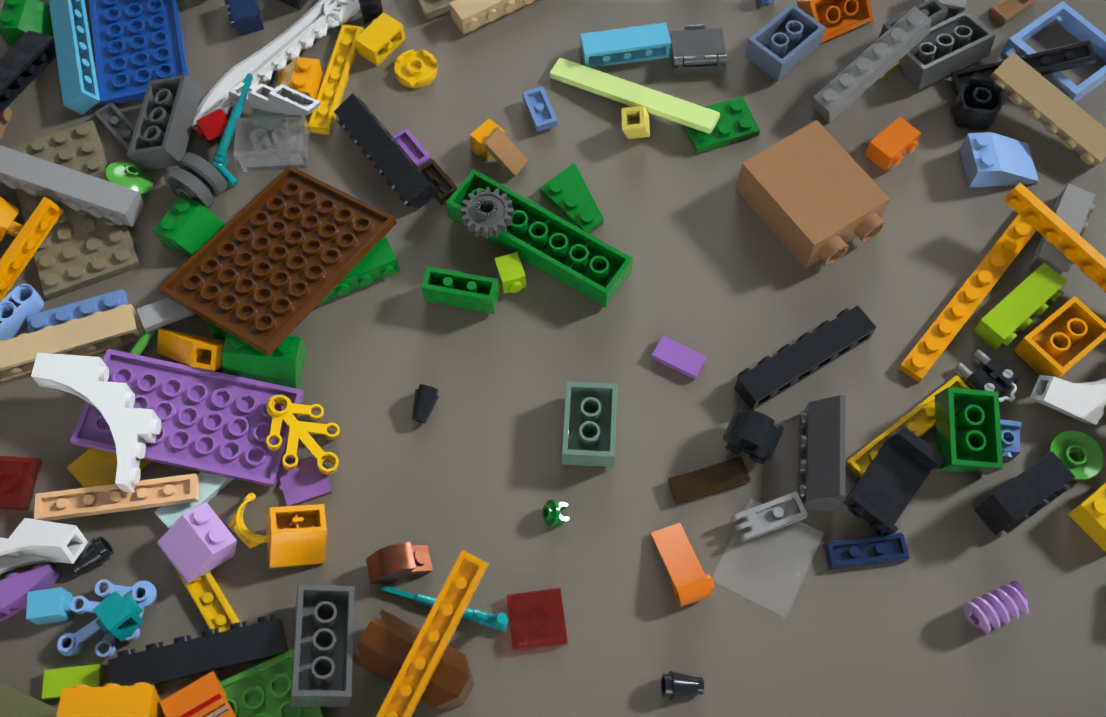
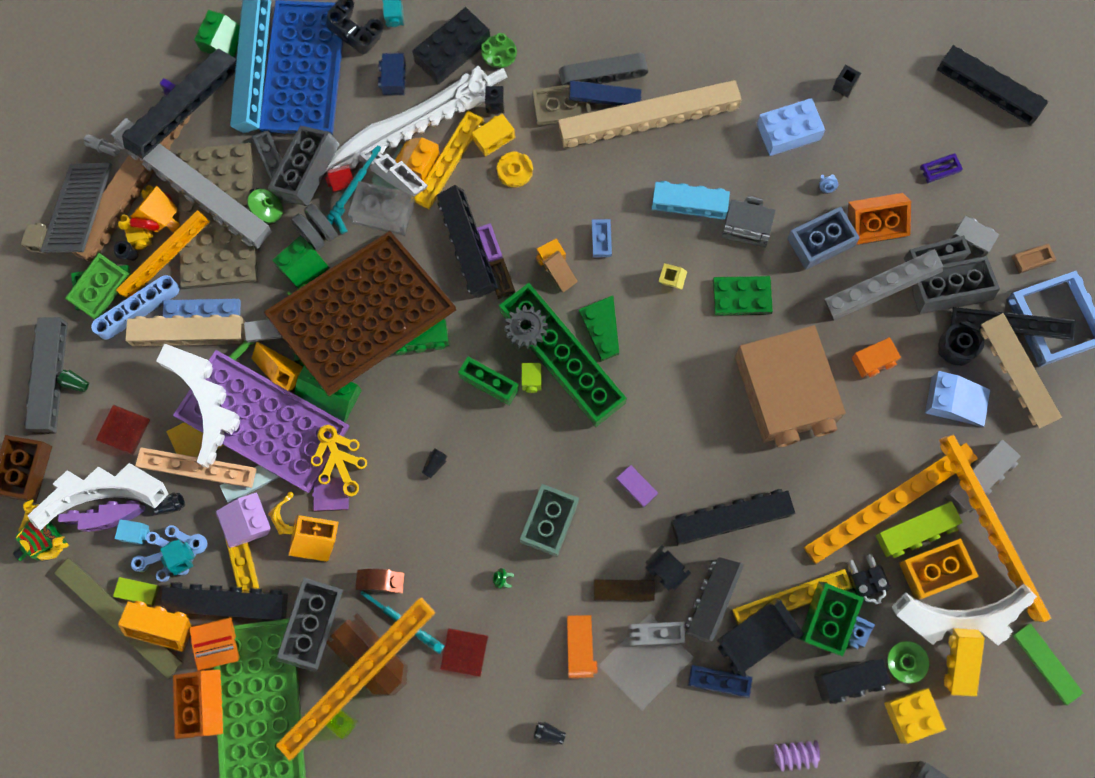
camera: 20 degrees right, 10 degrees up
(635, 95) = (681, 250): yellowish green tile -> none

